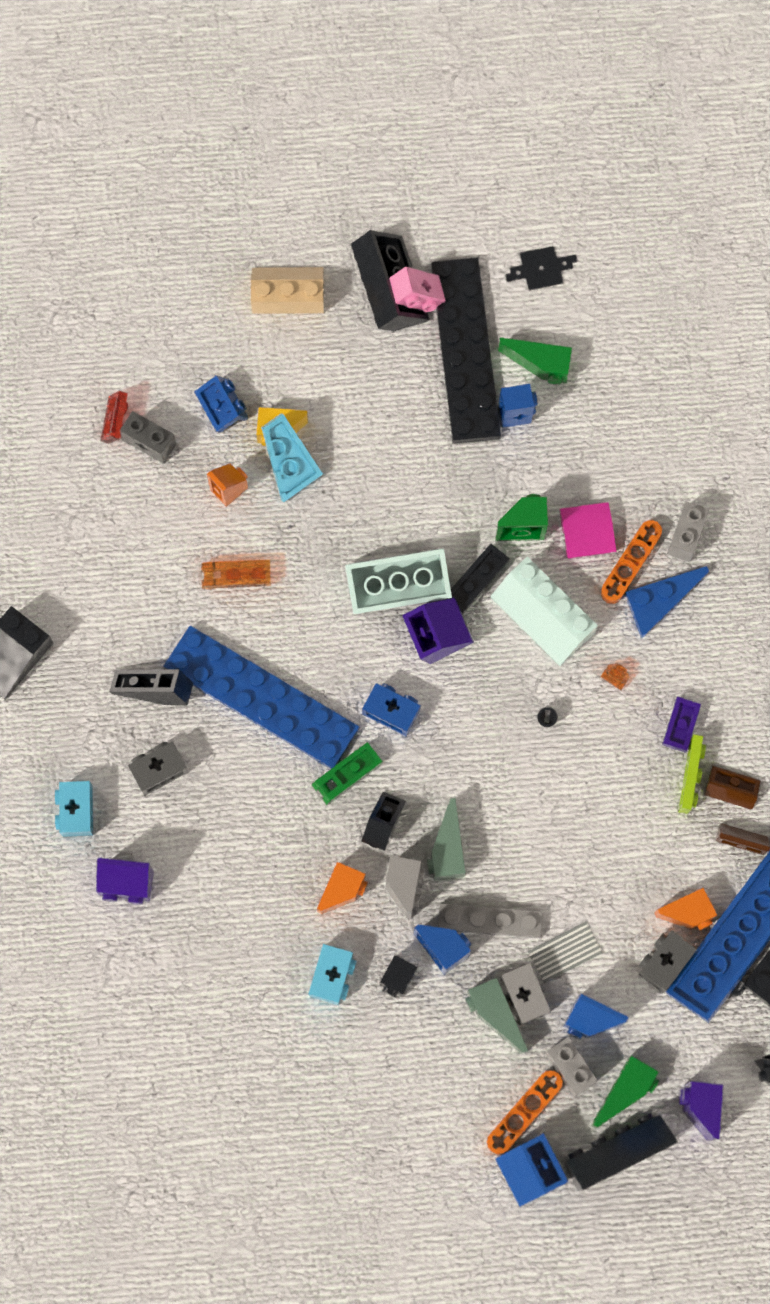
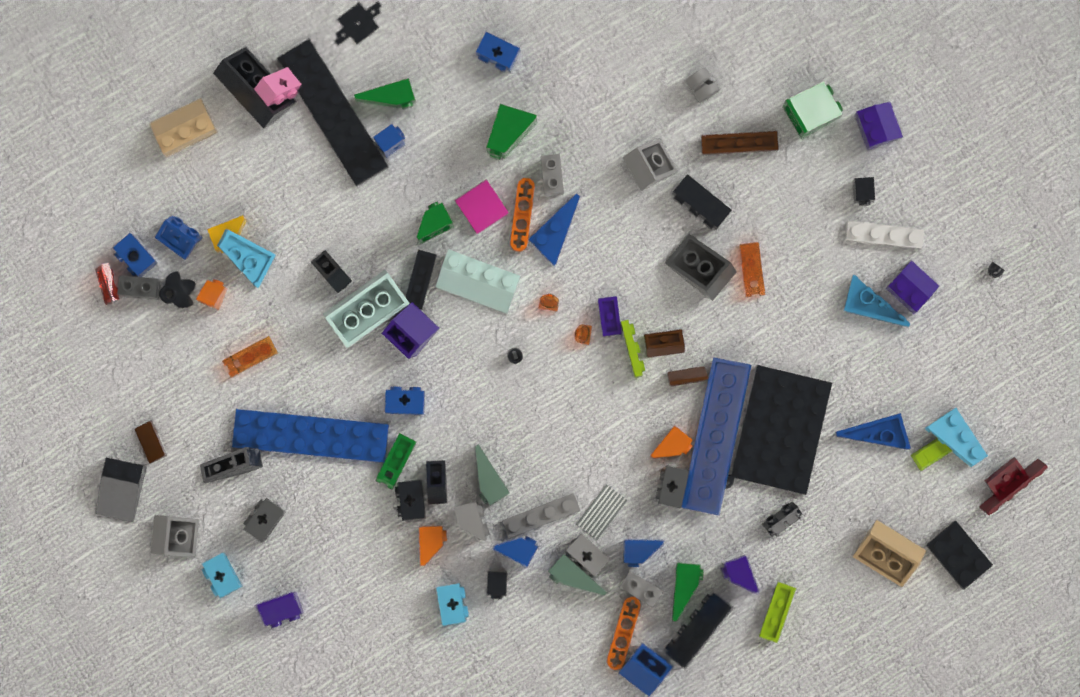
camera: 20 degrees left, 10 degrees up
(44, 736) = (174, 536): none -> light grey slope
(72, 617) = (150, 442): none -> reddish brown slope
(158, 387) = (129, 245): none -> blue brick
(193, 464) = (180, 288): none -> black plate
(343, 842) = (415, 489): none -> black brick
(378, 522) = (331, 271): none -> black slope
(640, 730) = (583, 334): none -> clear orange plate
(661, 457) = (509, 130): none -> green slope
(686, 356) = (492, 43): none -> blue brick
(727, 1178) = (777, 612): none -> lime plate

